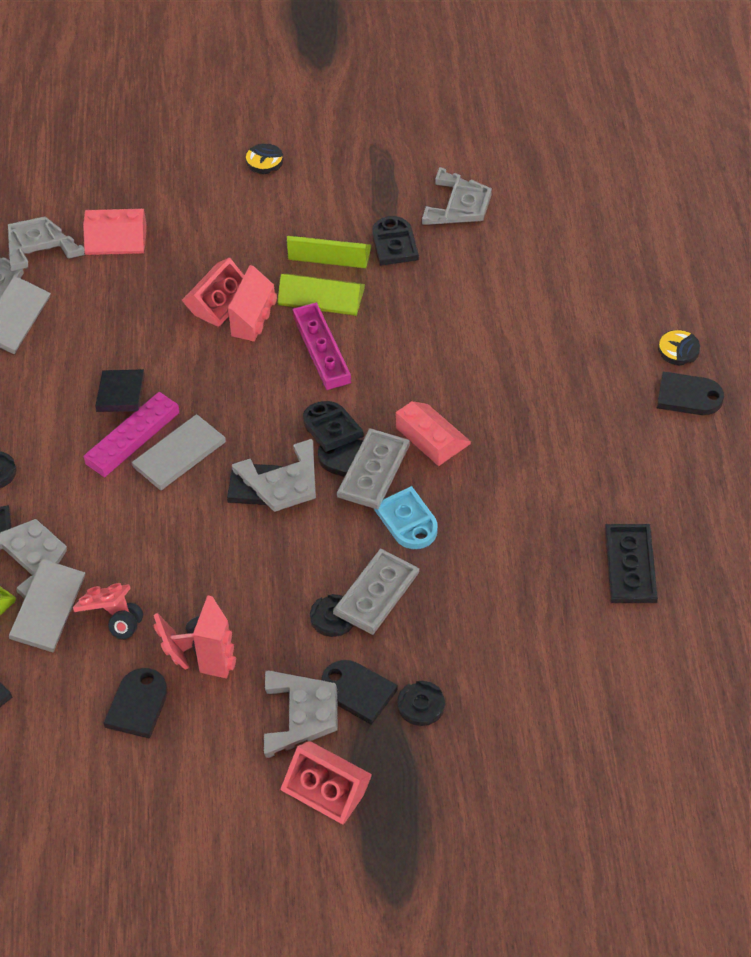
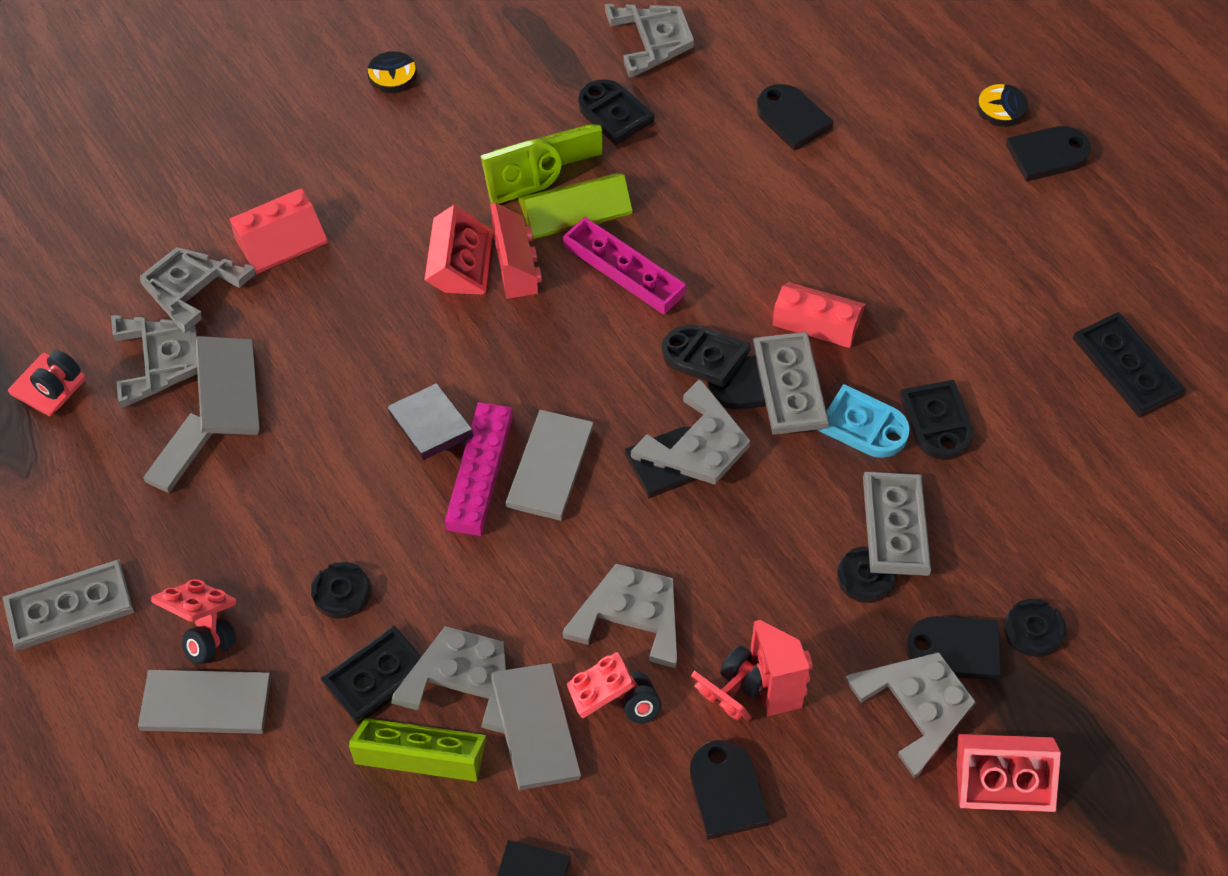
camera: 30 degrees left, 5 degrees up
(167, 559) = (632, 600): none -> light grey wing
(293, 253) = (519, 170): none -> lime tile
(464, 536) = (938, 416): none -> black tile
(517, 296) = (792, 116): none -> black tile

